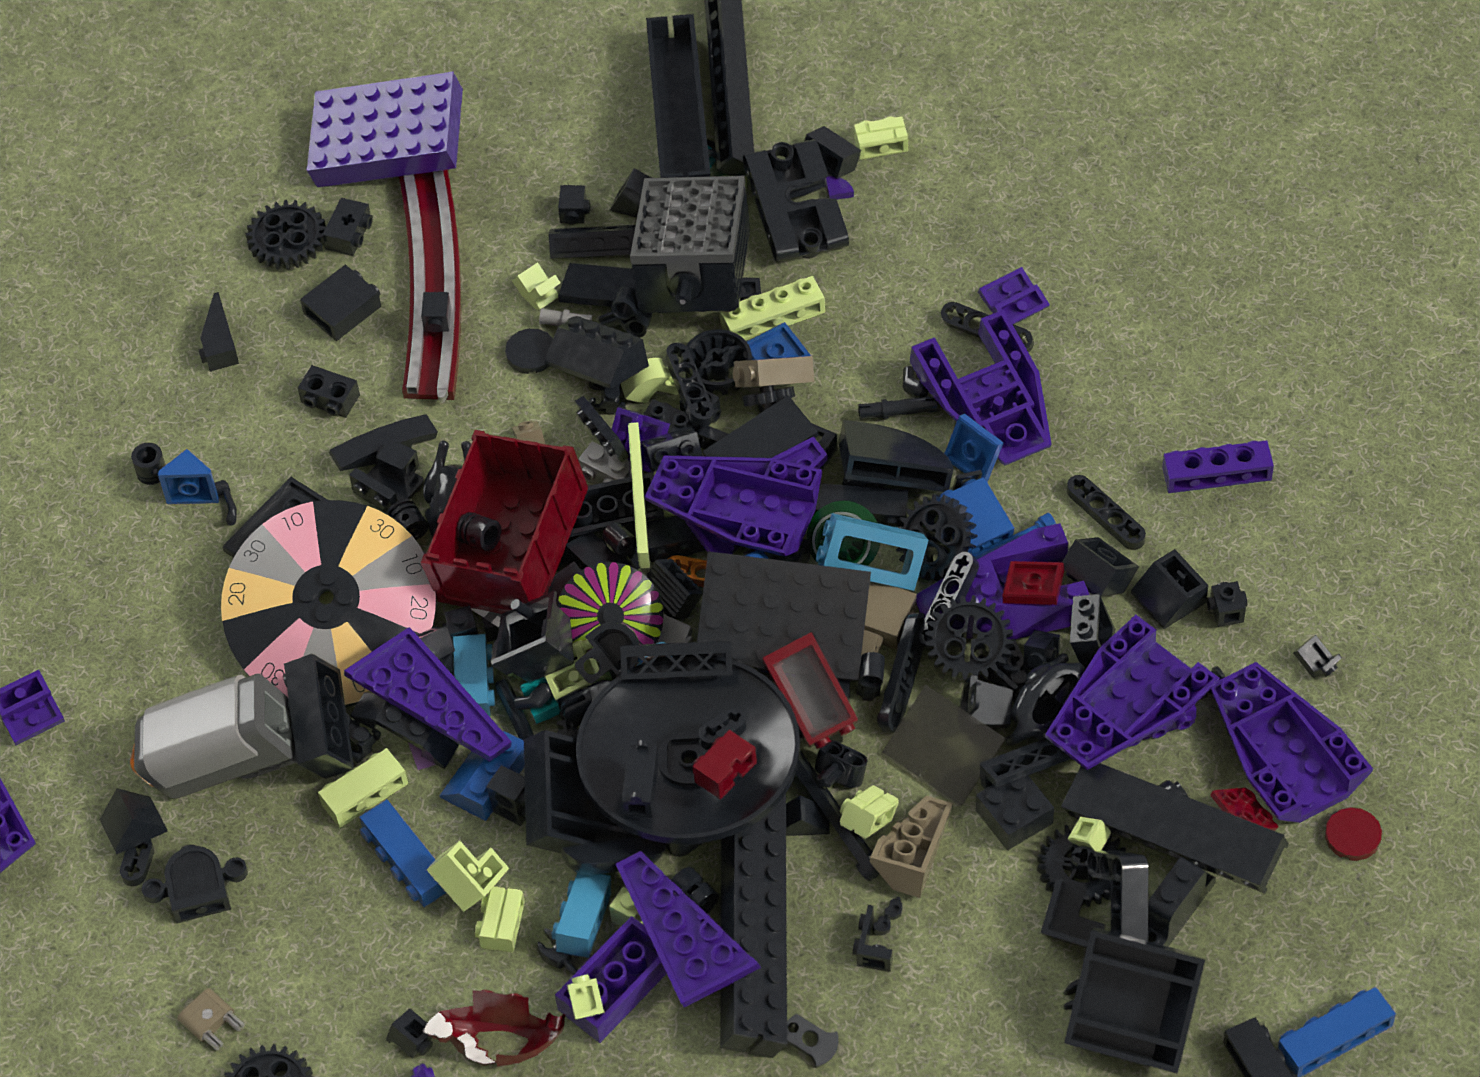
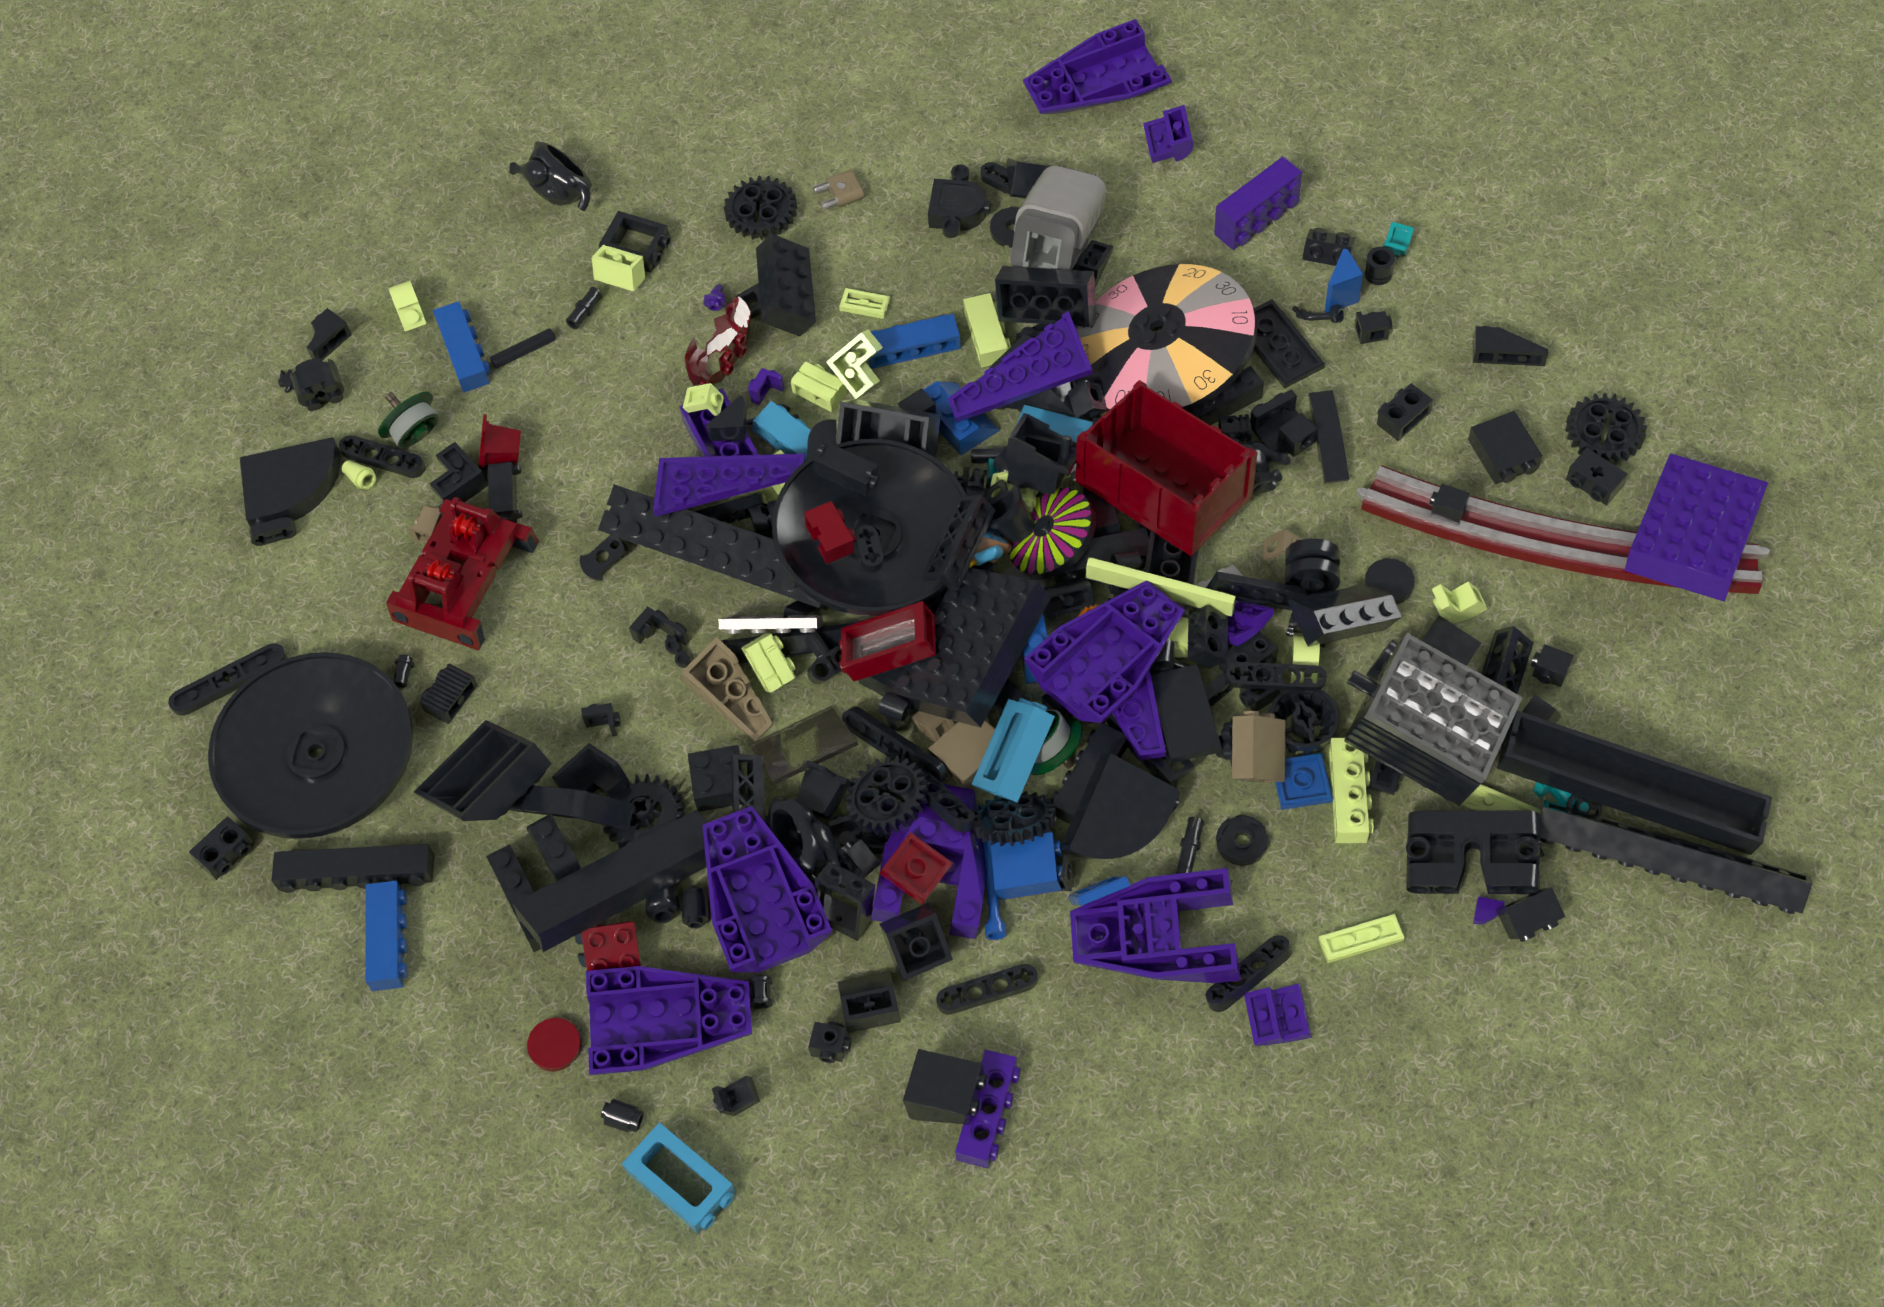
camera: 115 degrees right, 5 degrees up
(105, 586) = (1258, 203): none -> dark purple brick
(107, 461) = (1399, 238): none -> teal bracket
(134, 518) = (1326, 246): none -> black bracket
(201, 808) = (999, 225): none -> black tile
(230, 448) = (1372, 326): none -> black brick
(367, 948) = (863, 305): none -> yellowish green tile
(382, 997) = (785, 285): none -> black brick
(478, 531) = (1173, 452): black piece -> none
(521, 978) = (762, 383): none -> dark purple bracket
(554, 398) = (1313, 565): none -> black wheel
(557, 318) = (1413, 616): light grey pin -> none
(602, 952) = (730, 423): none -> black slope
(827, 824) = (735, 623): none -> wing
(861, 388) = (1242, 854): none -> black tile
(881, 137) = (1536, 971): yellowish green brick -> none
(910, 264) = (1361, 938): none -> yellowish green tile
(997, 951) = (600, 715): none -> black bracket
(1090, 833) = (656, 818): yellowish green slope -> none
(1158, 769) = (694, 907): none -> black brick
(1226, 491) = (944, 1088): none -> black slope
(1230, 926) = (512, 882): none -> black brick
(1387, 741) = (622, 1116): none -> black brick
(1406, 705) = (695, 1217): none -> dark azure piece

